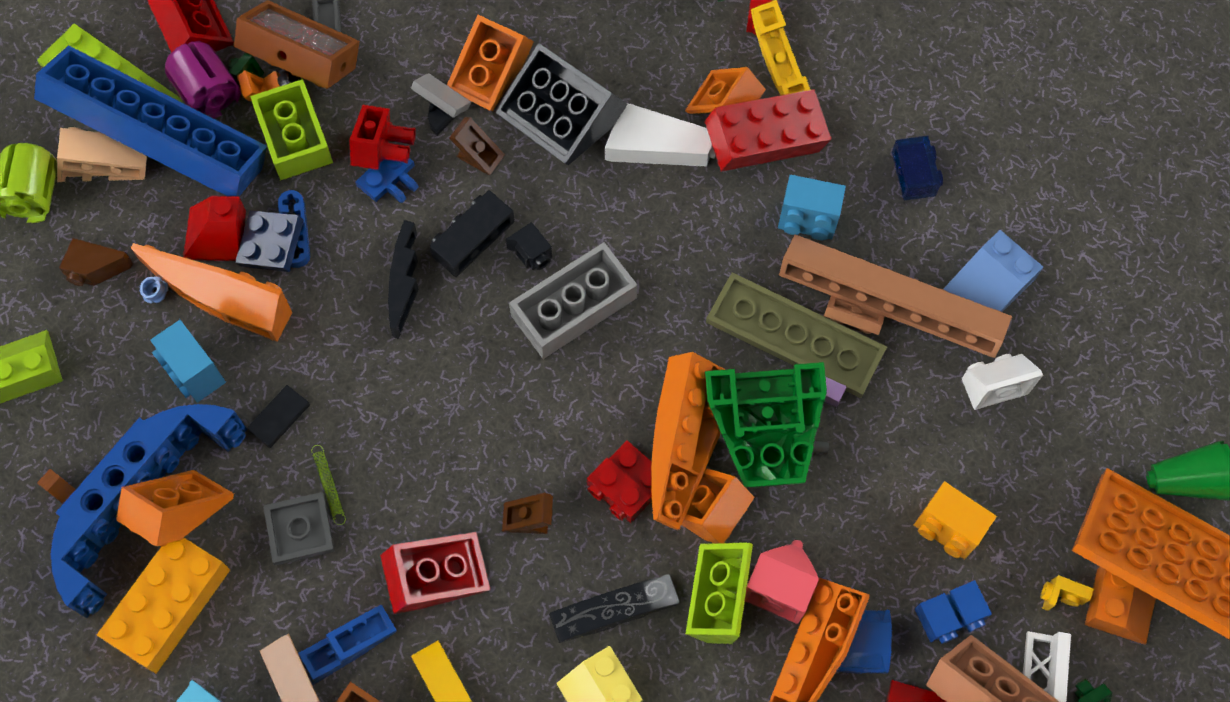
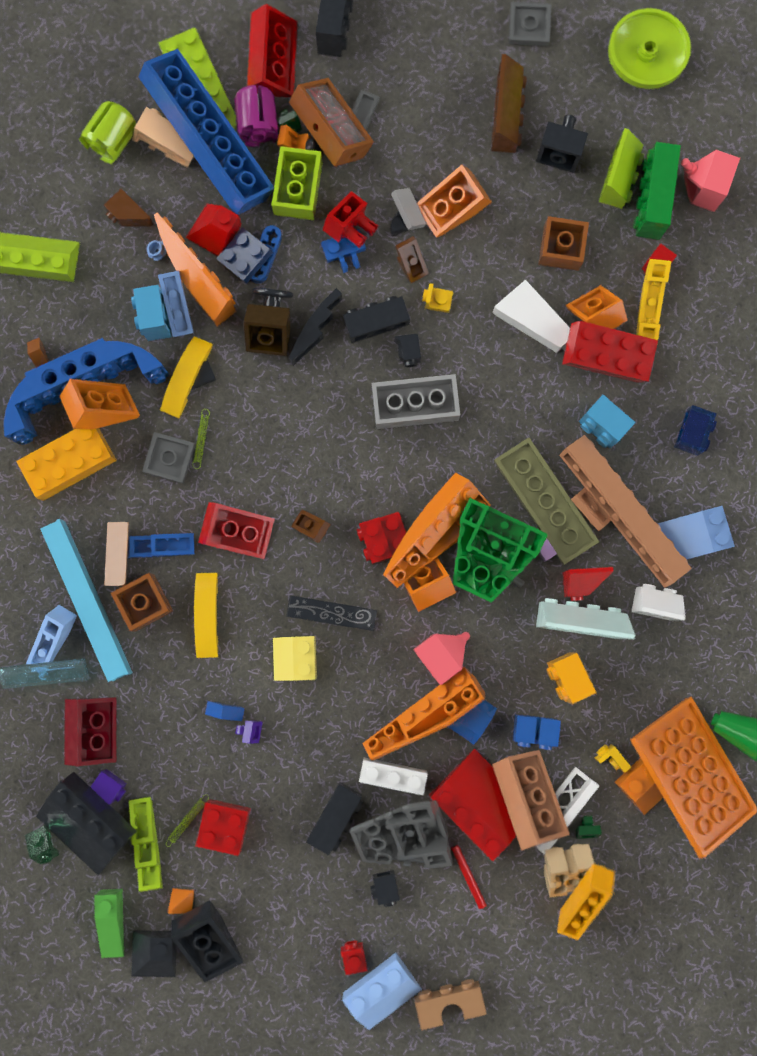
camera: 30 degrees right, 15 degrees up
(212, 337) = (176, 303): none -> medium blue plate
(268, 421) = (184, 376): none -> yellow slope
(342, 299) = (268, 324): none -> dark brown piece
(532, 176) = (437, 299): none -> yellow bracket
(559, 105) = (481, 259): black slope -> none
(643, 44) = (563, 243): none -> dark orange brick
(719, 592) = (398, 640): lime slope -> none
(896, 399) = (583, 581): none -> red slope
(928, 446) = (584, 620): none -> light aqua slope

